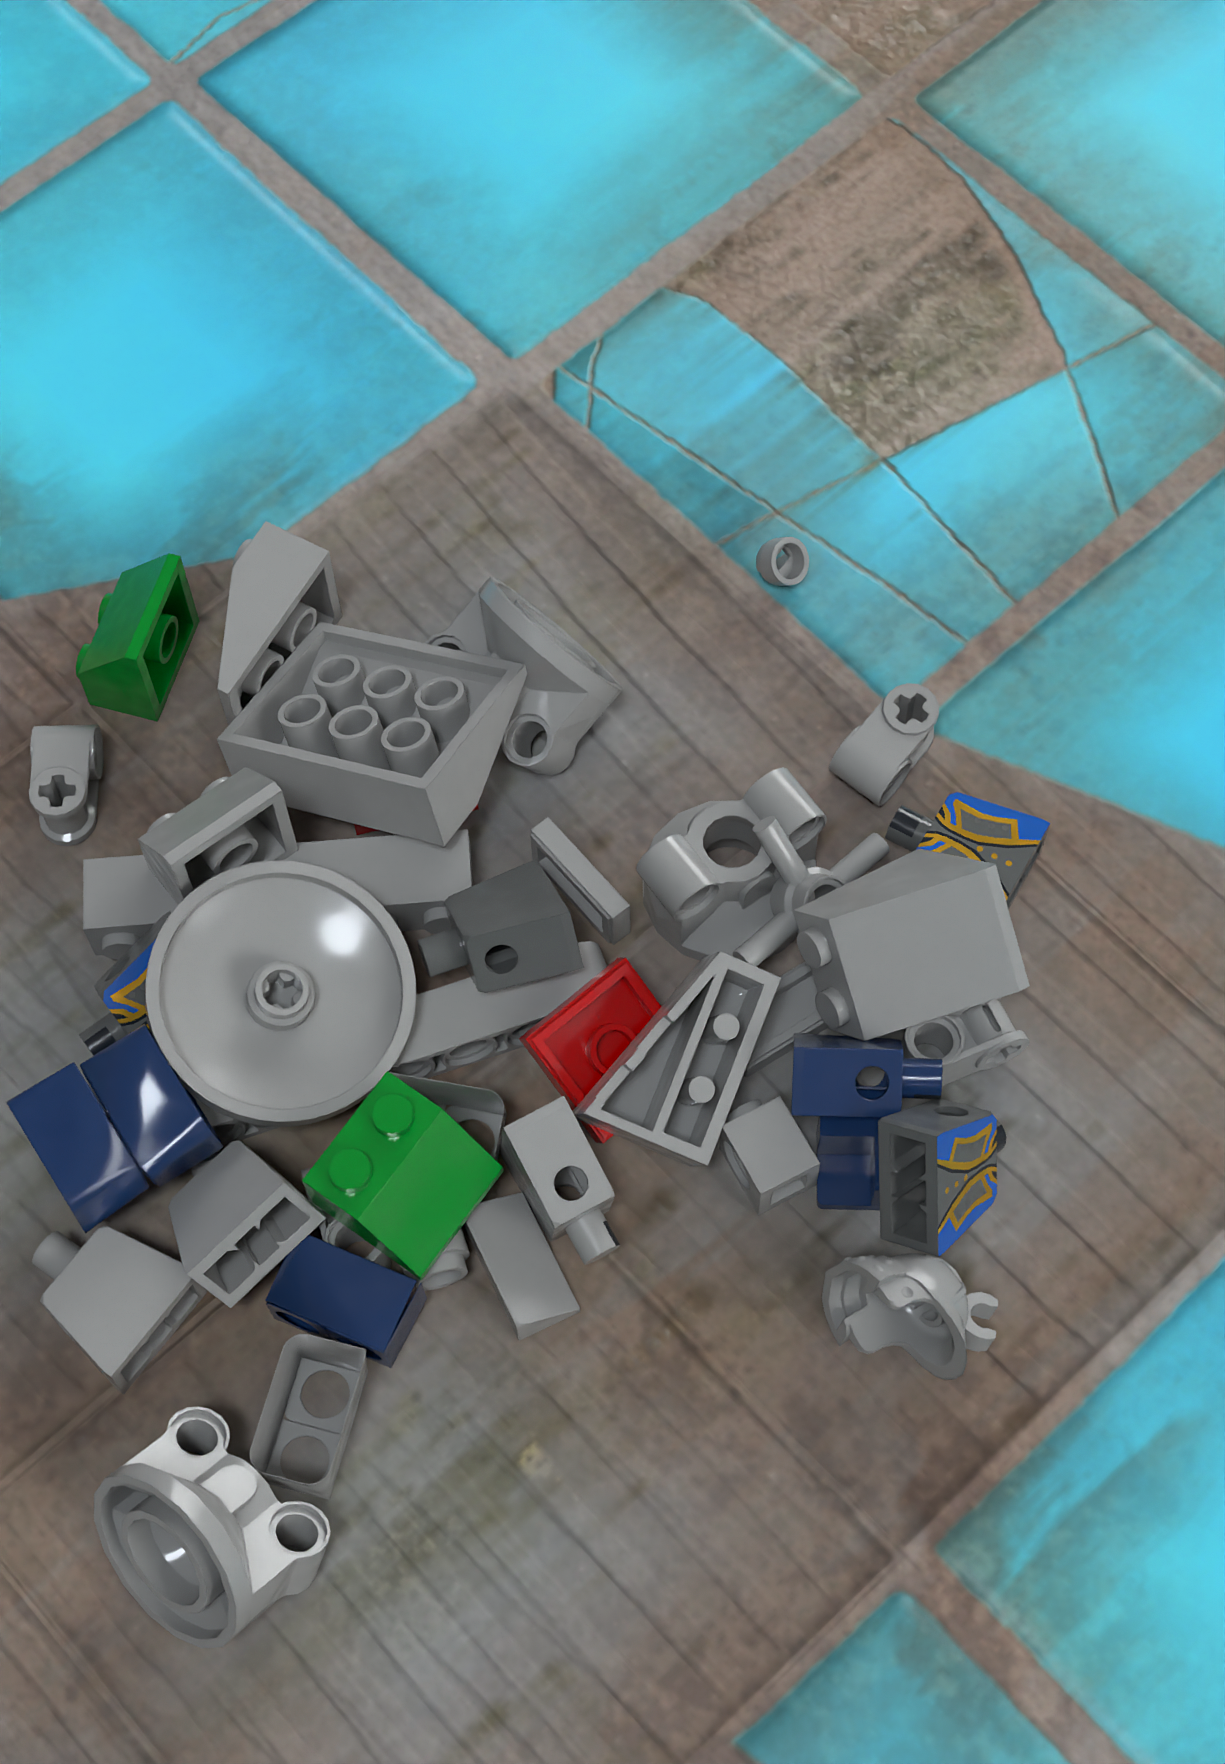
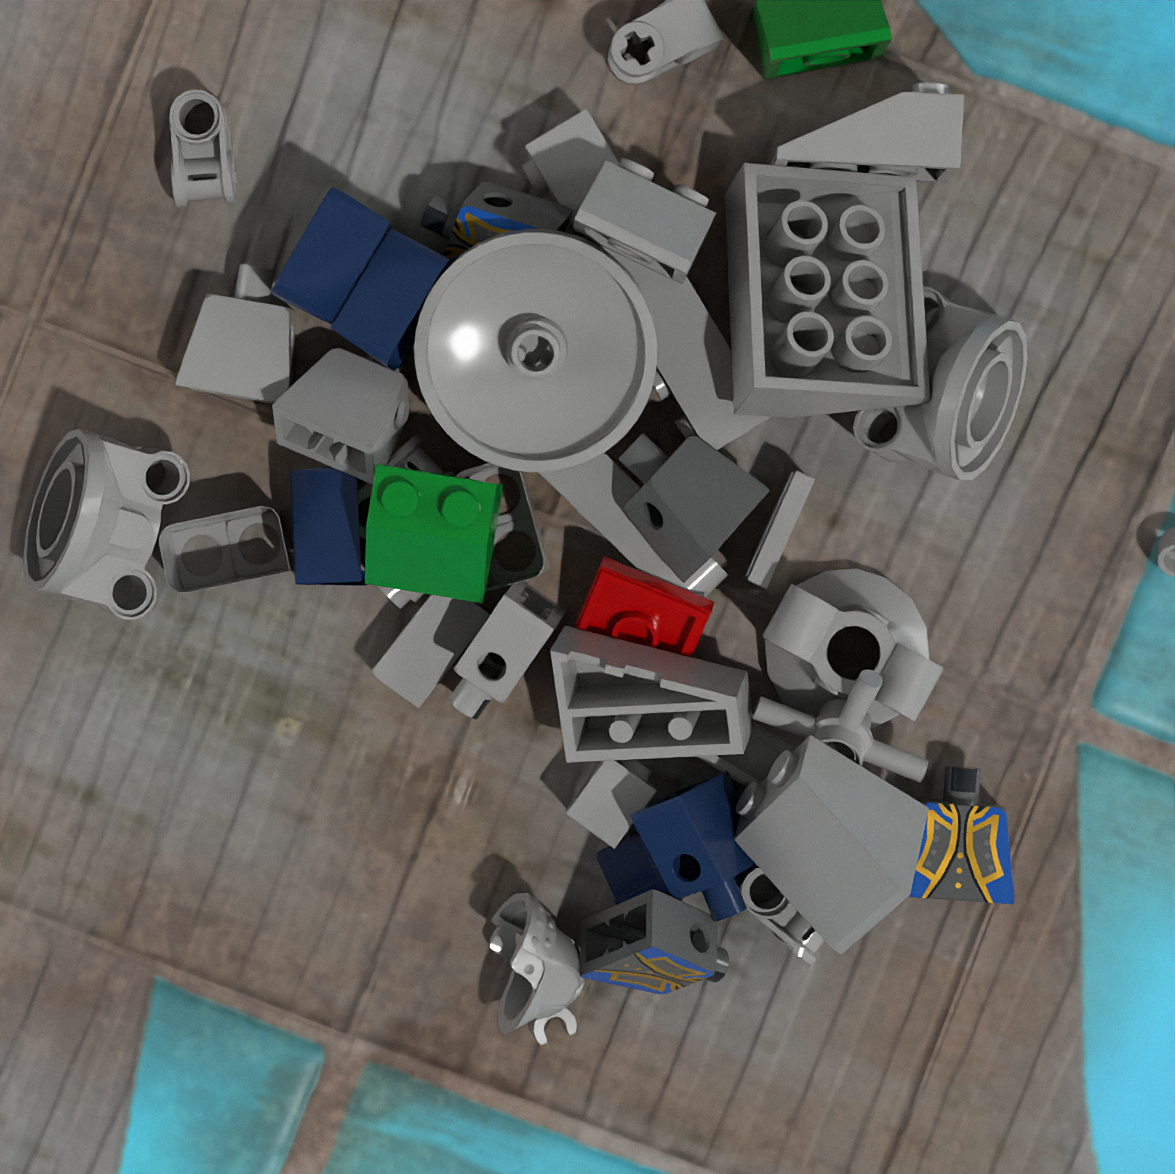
camera: 65 degrees right, 25 degrees up
(888, 743) = (1025, 727): light grey piece -> none

